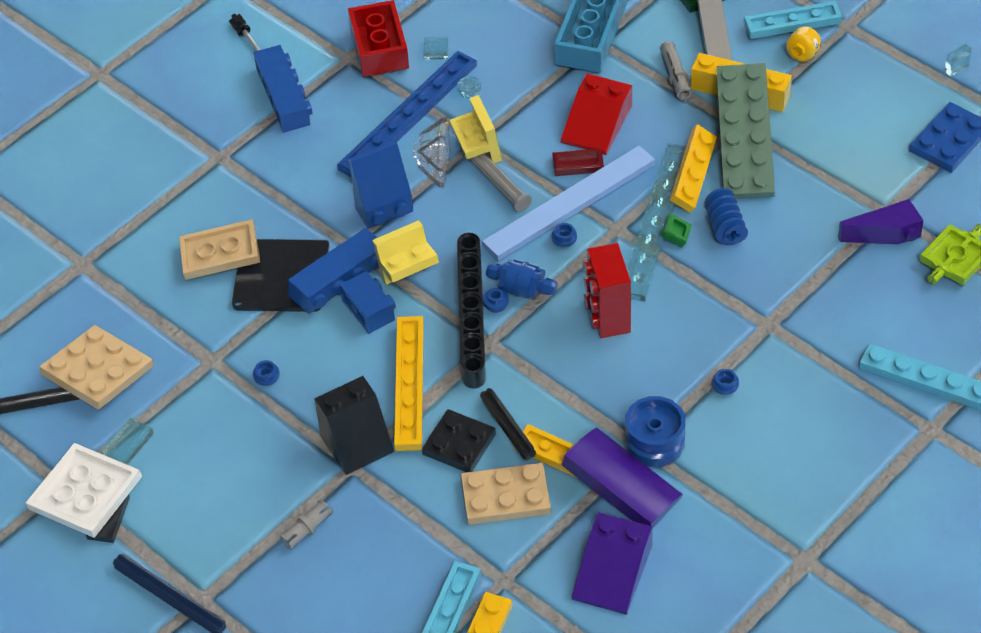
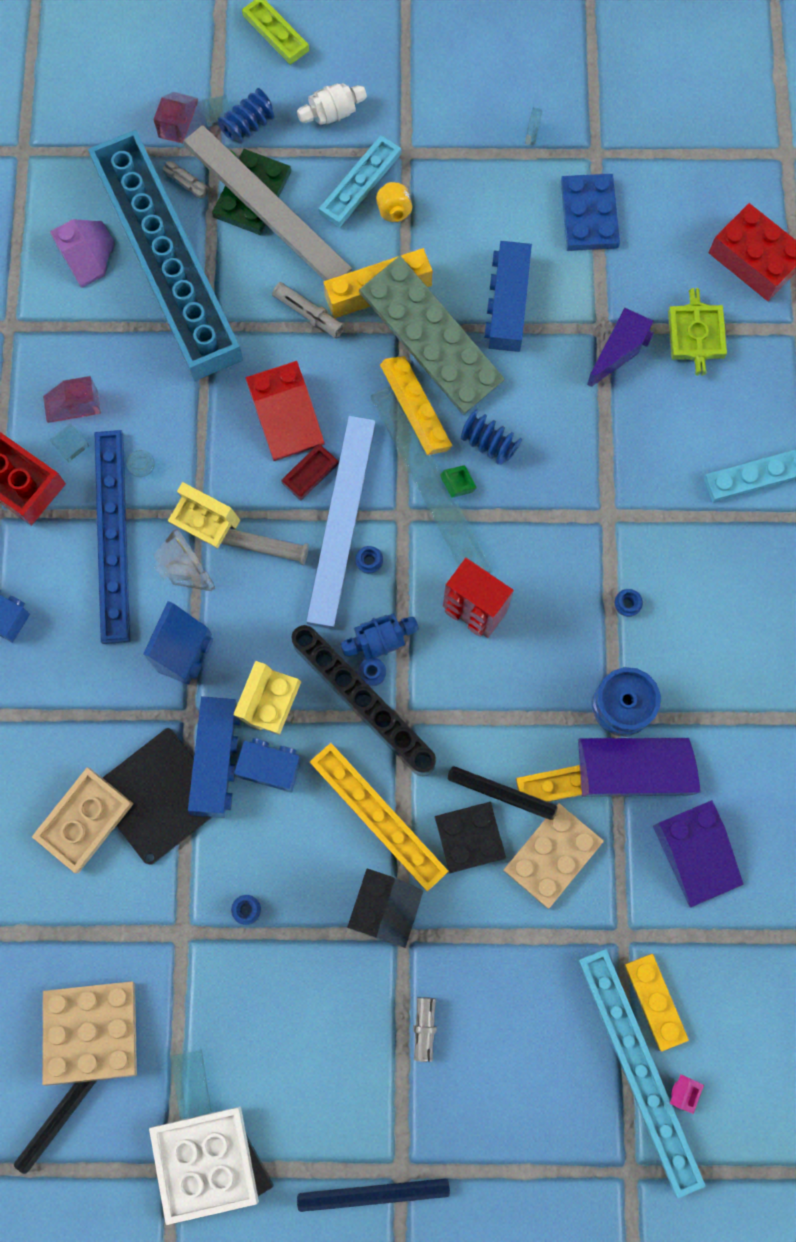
camera: 45 degrees left, 25 degrees up
(464, 24) = (72, 400): none -> clear pink slope
(831, 146) = (510, 296): none -> blue brick

